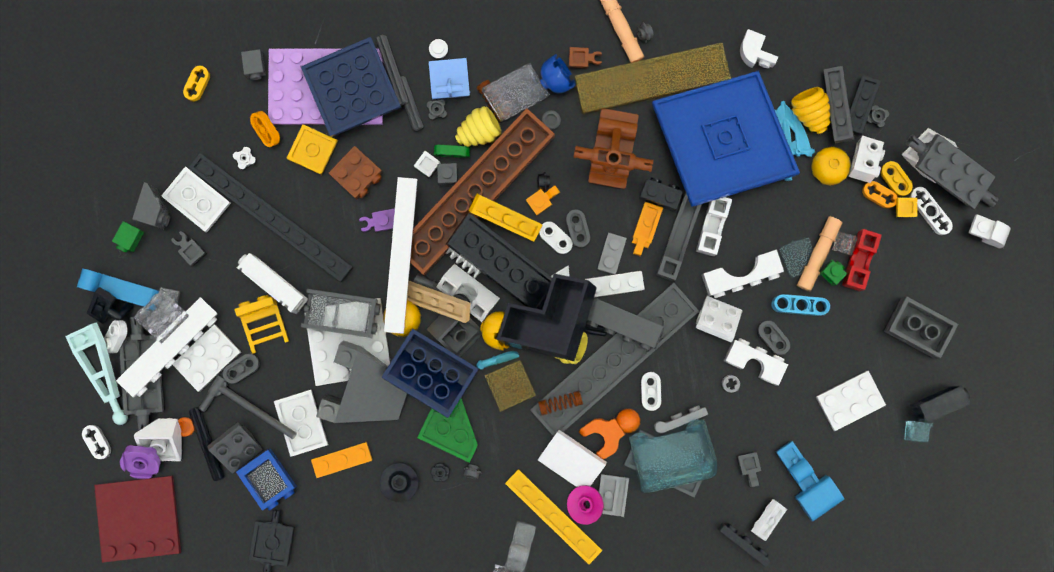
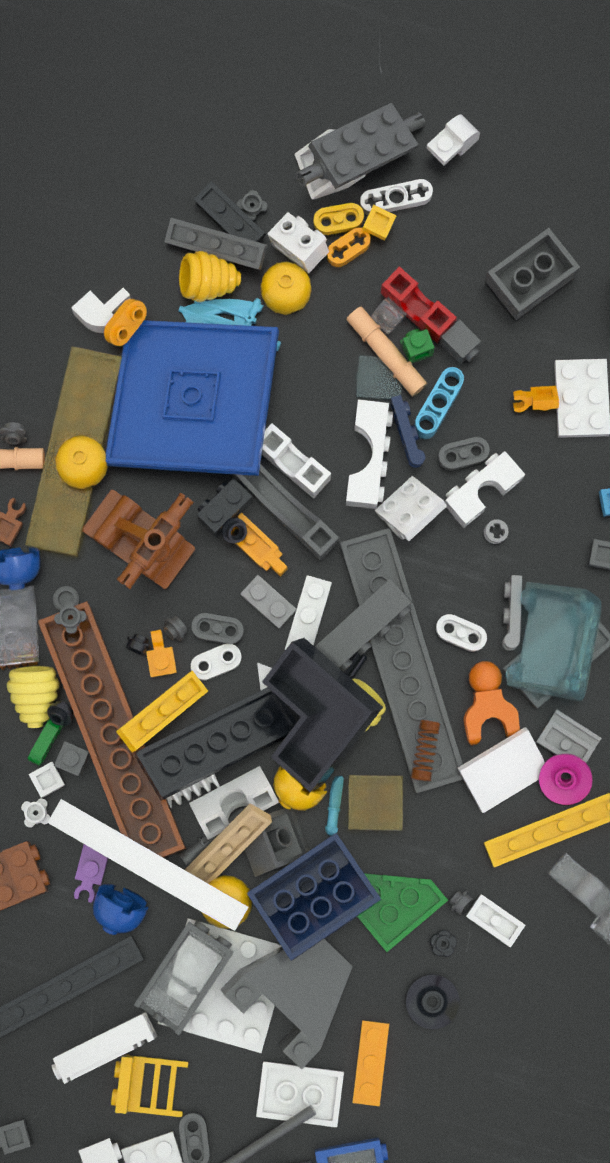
camera: 65 degrees left, 5 degrees down
(364, 250) = (118, 910): none -> blue cylinder
(403, 161) = (29, 808): none -> white plate
(470, 500) = (495, 920): none -> white plate
(473, 152) = (60, 713): none -> black plate
(543, 124) = (62, 617): none -> dark grey plate
(565, 200) = (174, 628): none -> dark grey plate
(645, 212) = (238, 534): none -> black plate
(646, 86) = (81, 462): none -> yellow cylinder
(755, 69) = (125, 320): none -> light orange plate
(770, 293) = (407, 433): none -> dark blue plate
(836, 371) = (538, 397): none -> light orange plate
(849, 301) = (460, 342): none -> dark grey brick

